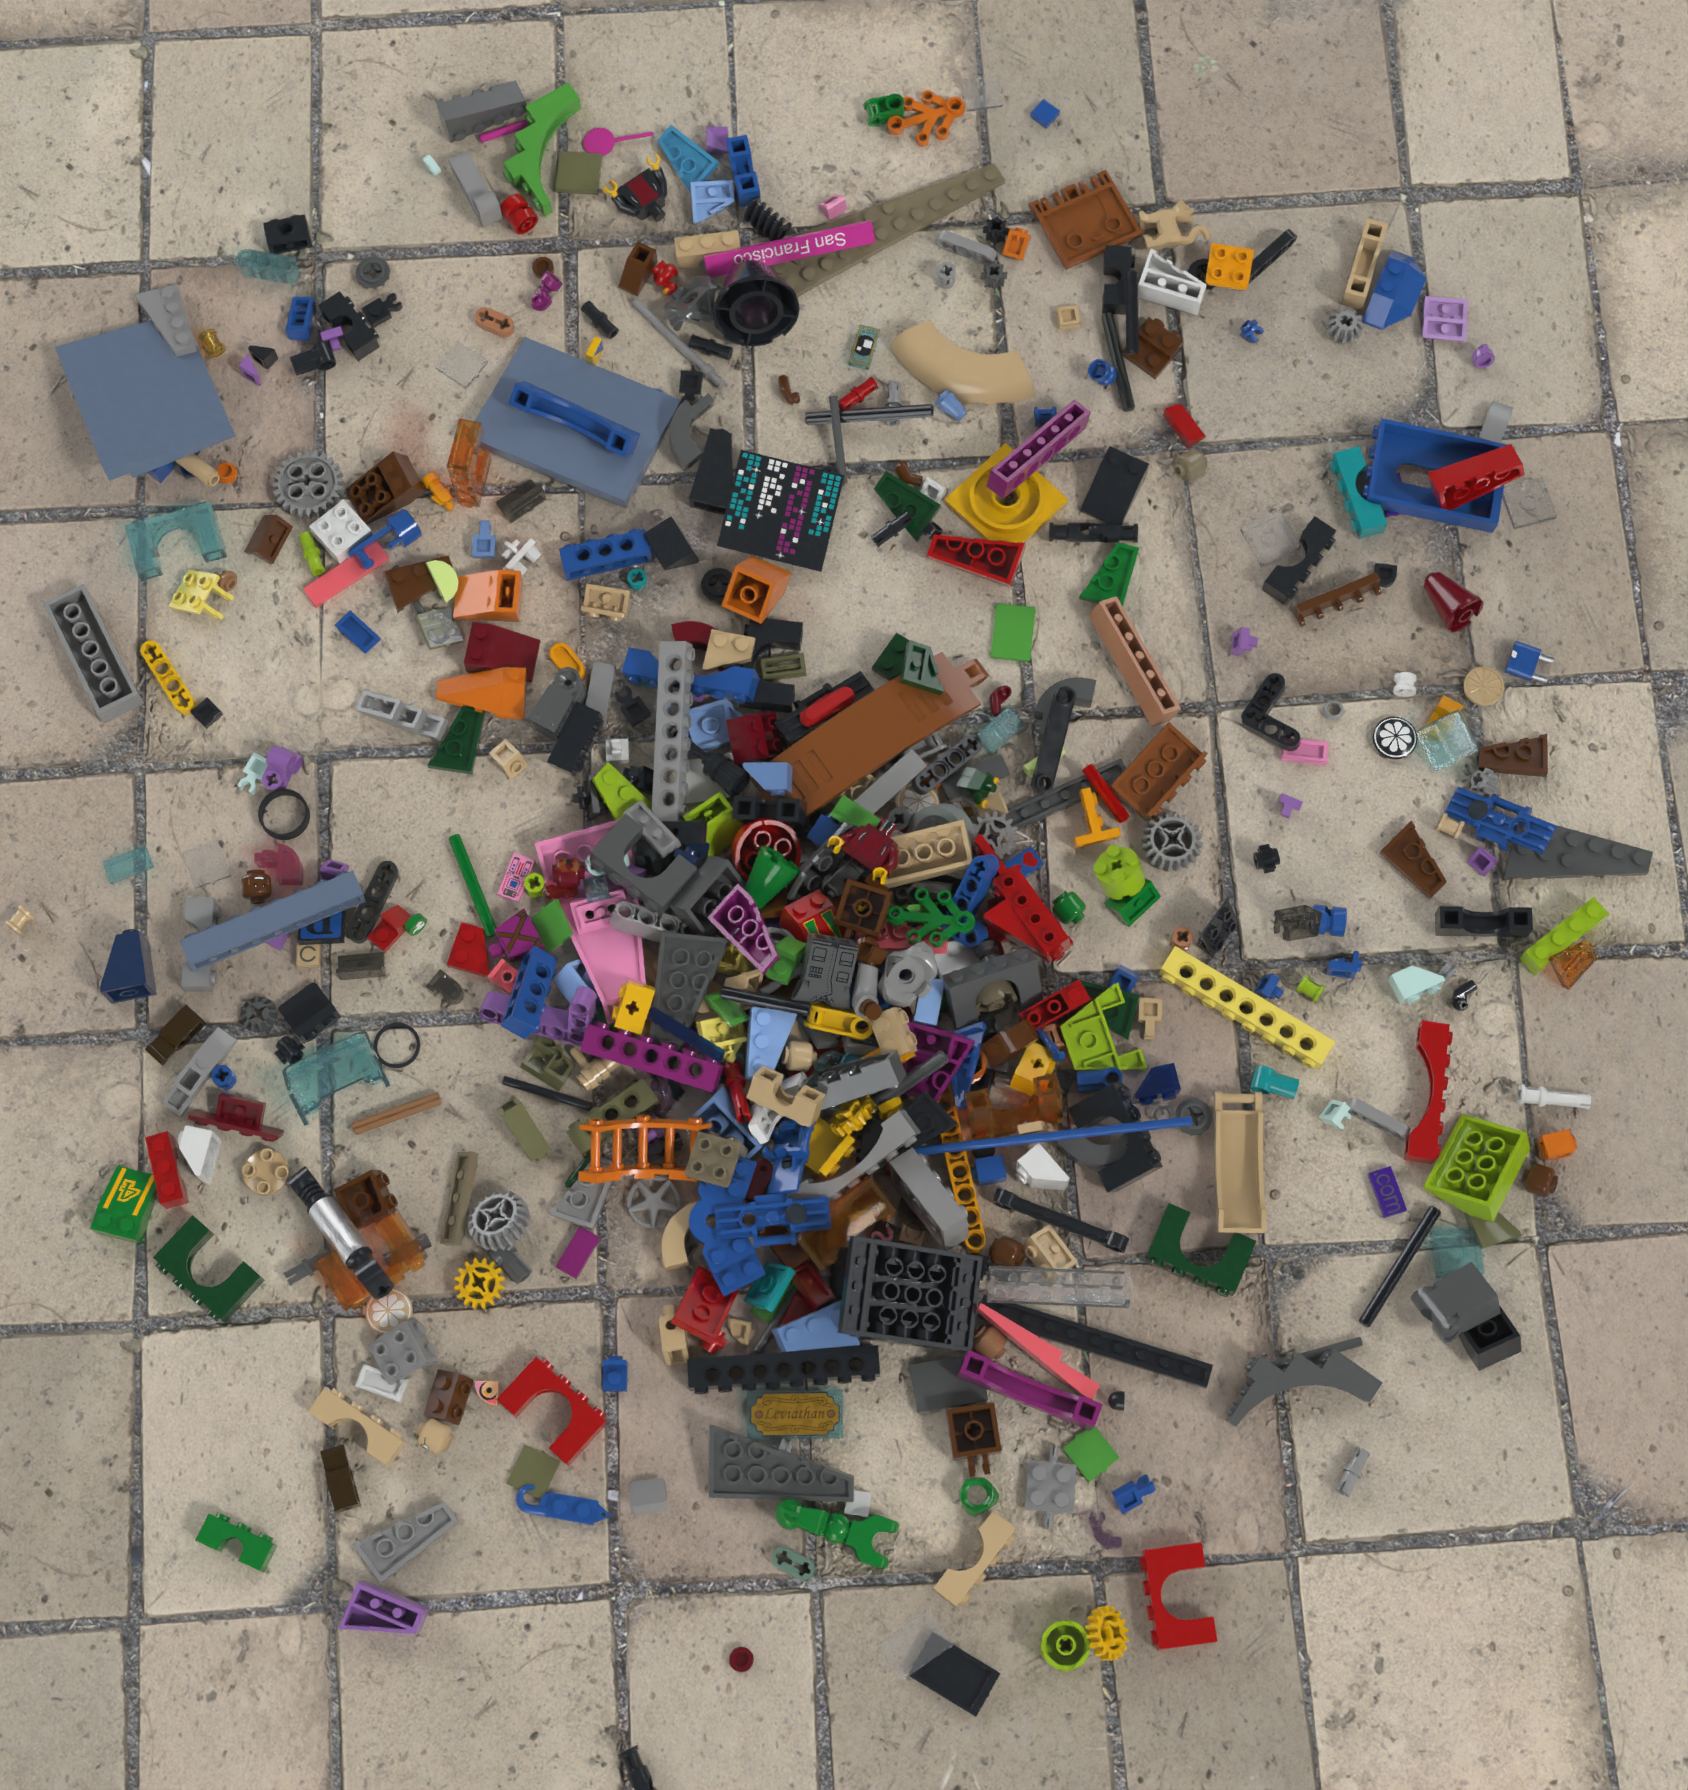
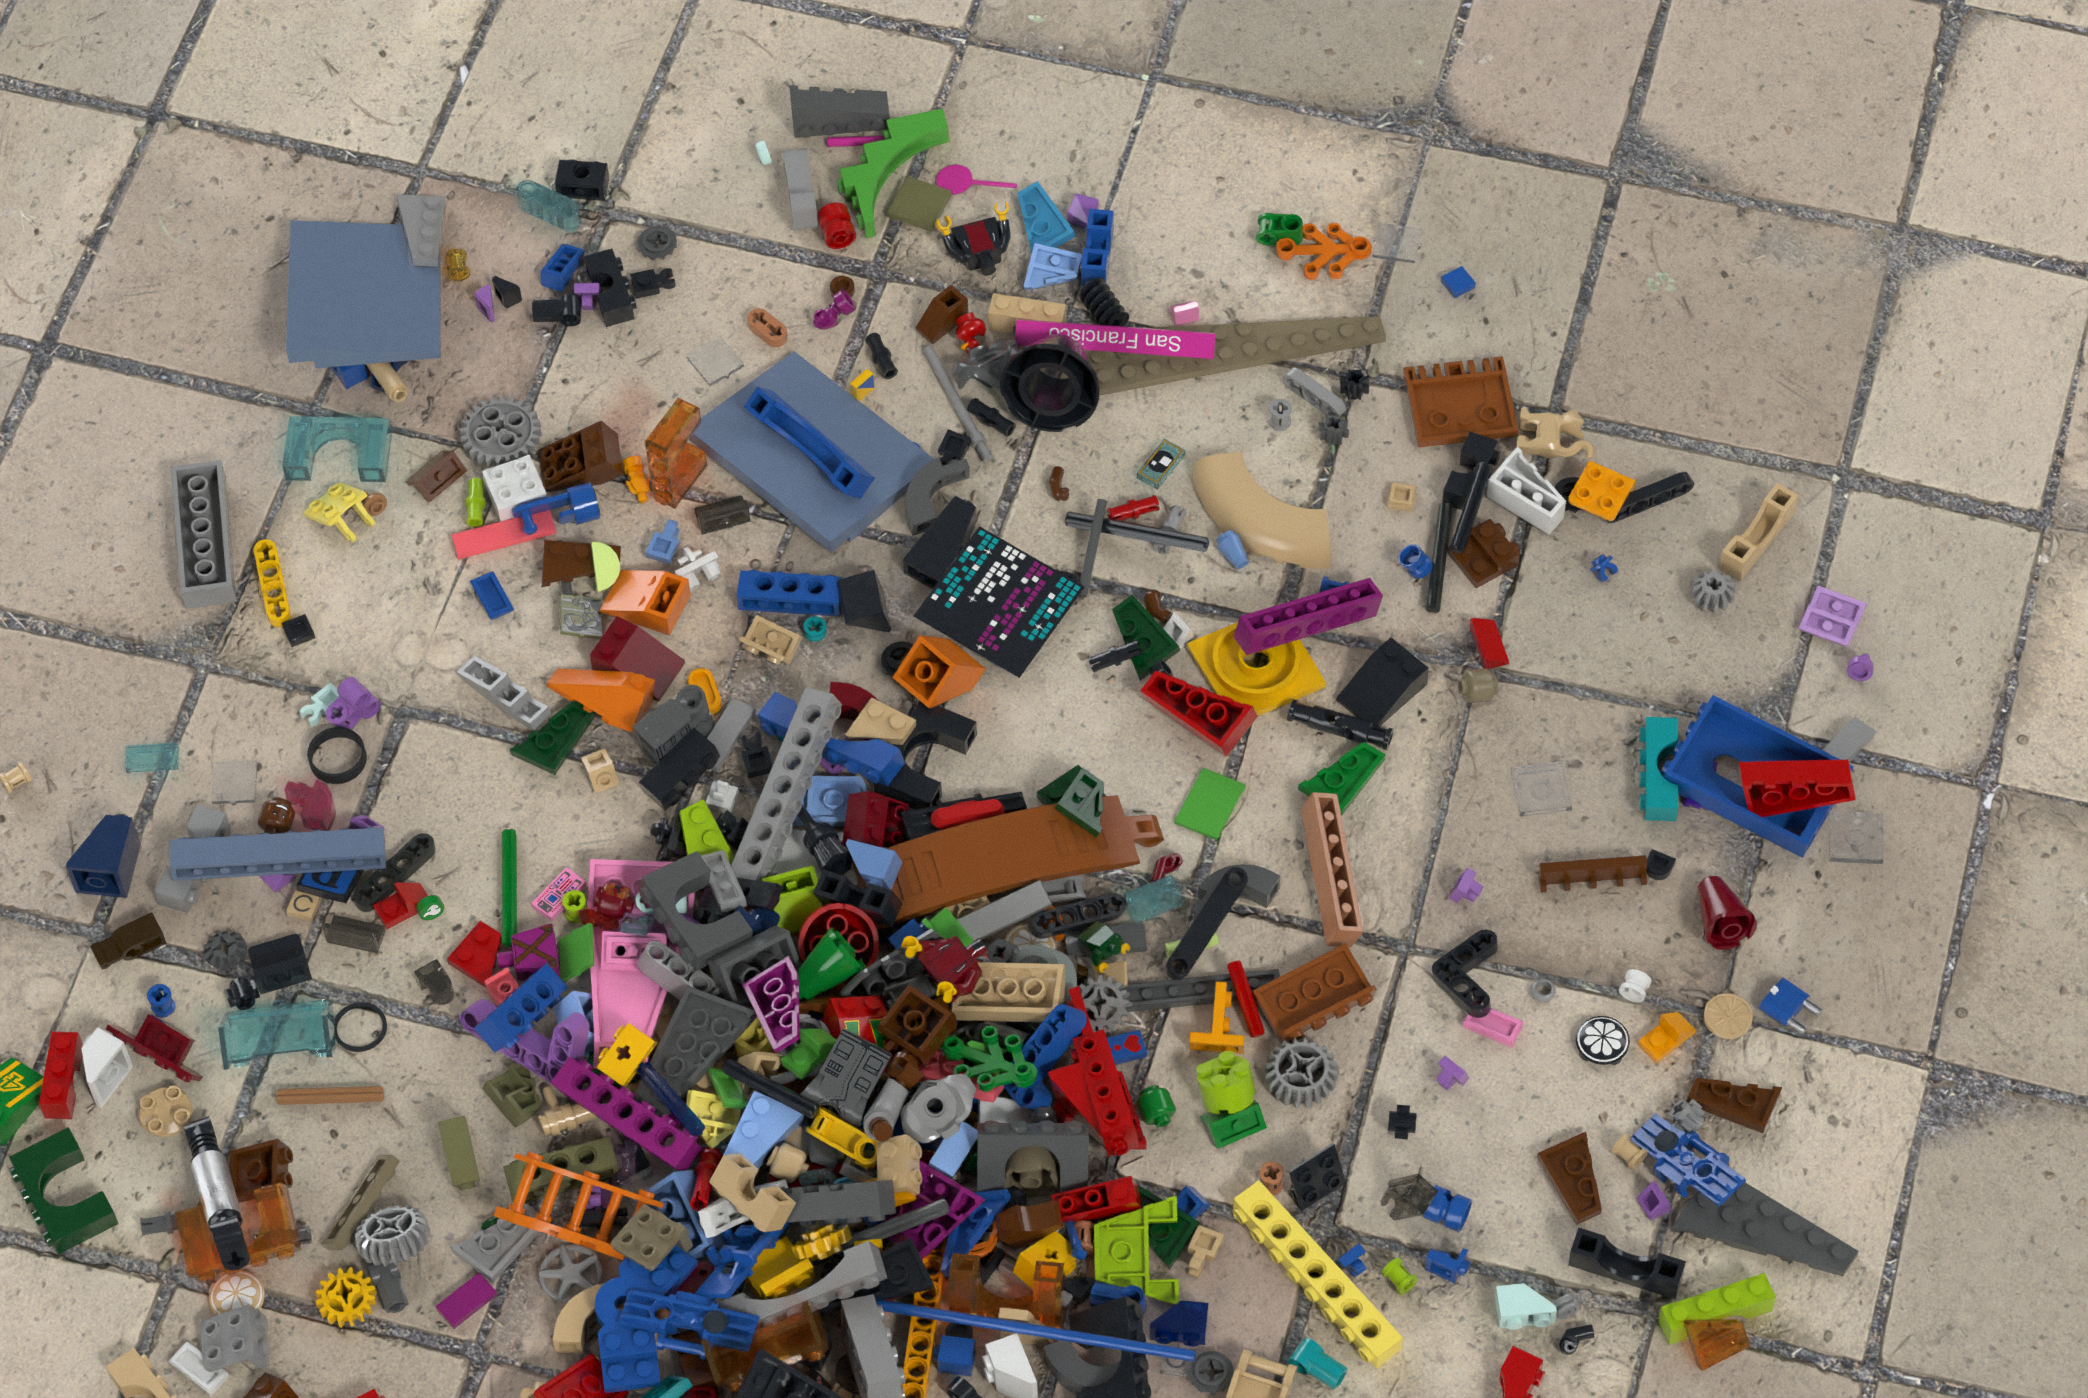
camera: 20 degrees right, 15 degrees down
(198, 1071) = (135, 983): light grey slope -> none
(227, 473) = (419, 397): orange plate -> none
(547, 1093) = (499, 1124): black bar -> none
(783, 675) = (939, 769): olive tile -> none
(1016, 243) = (1372, 404): orange bracket -> none
(1284, 580) = (1538, 837): black arch -> none
(1395, 291) = (1784, 570): blue wedge -> none
(1447, 740) = (1659, 1057): clear light blue slope -> none

